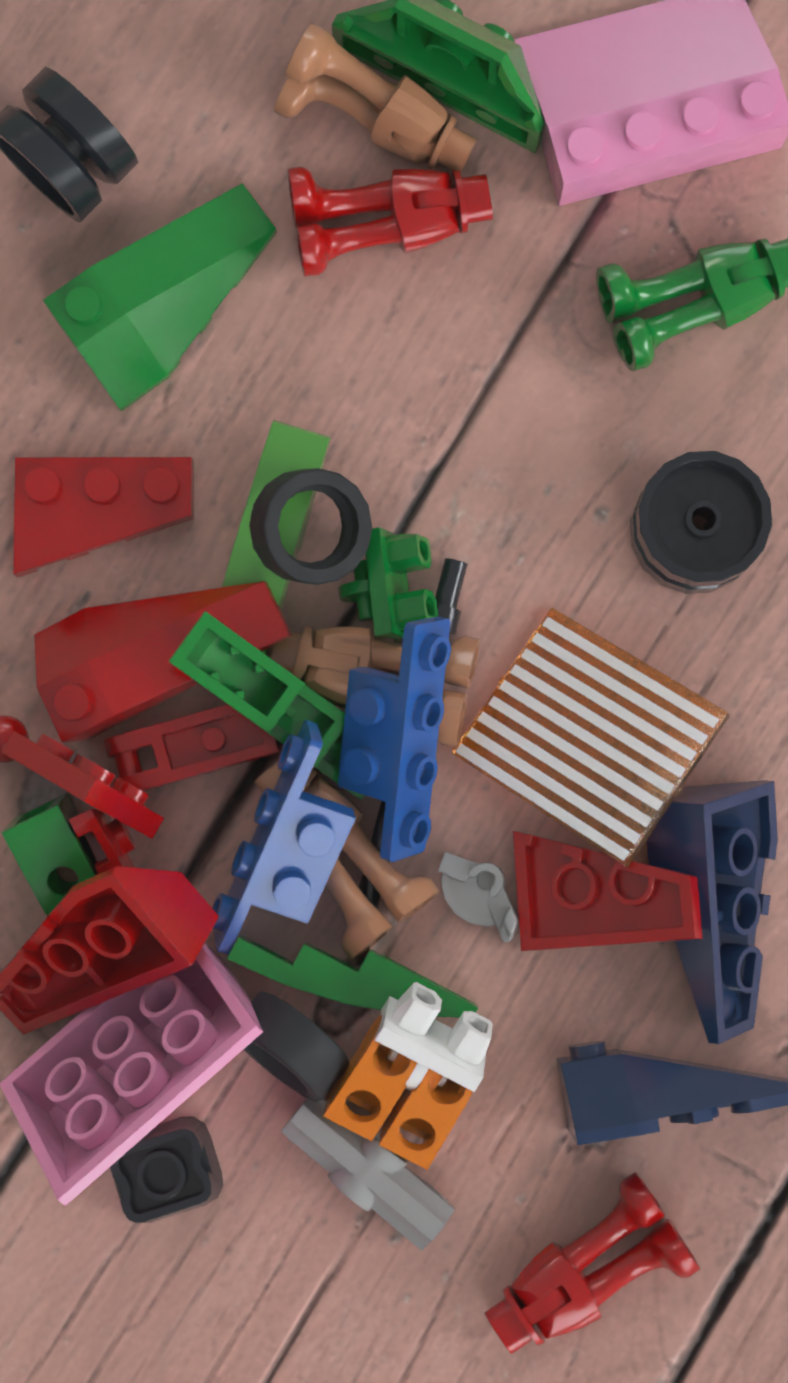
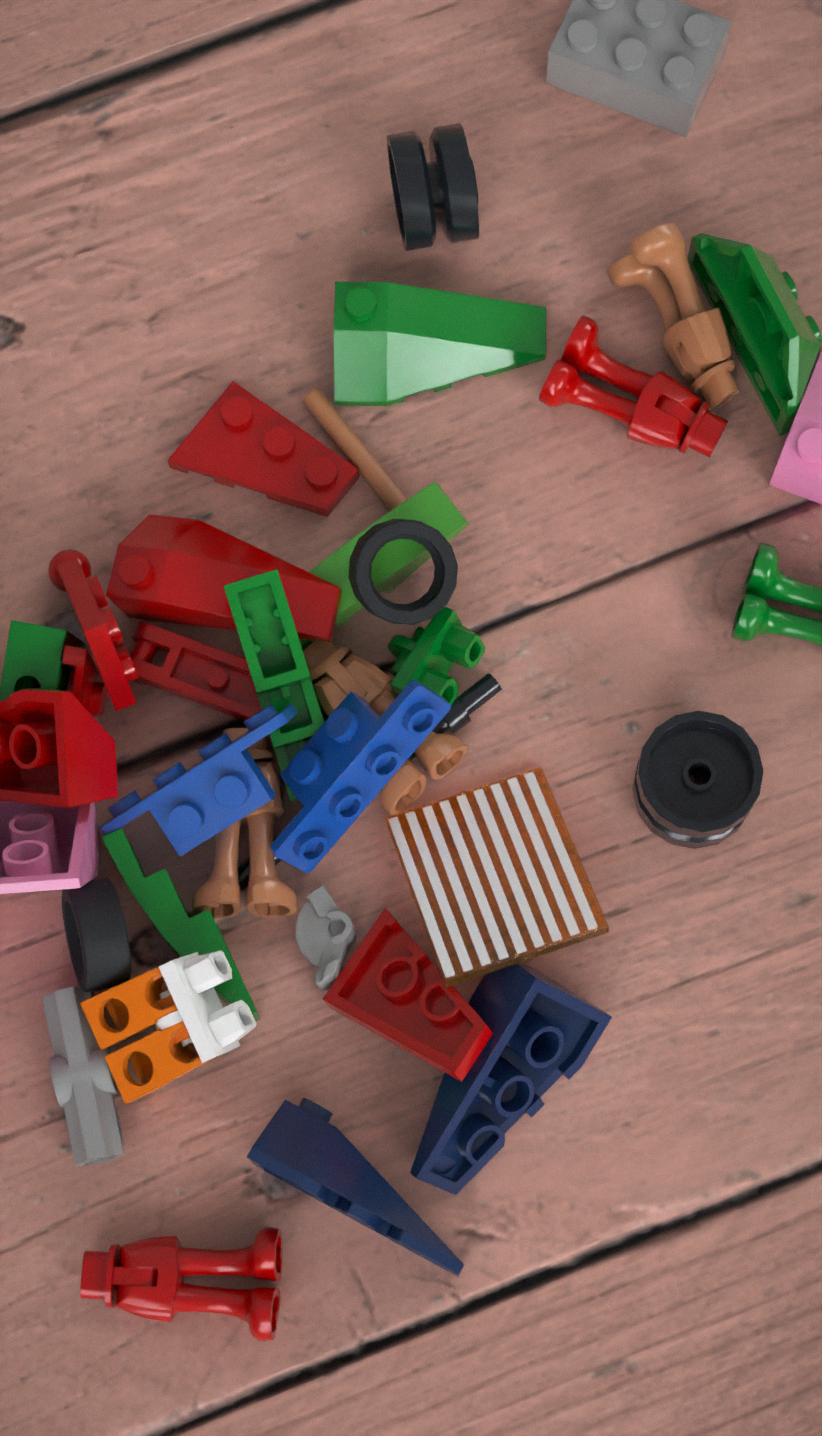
camera: 35 degrees right, 10 degrees down
(175, 441) = (354, 449): none -> nougat bar

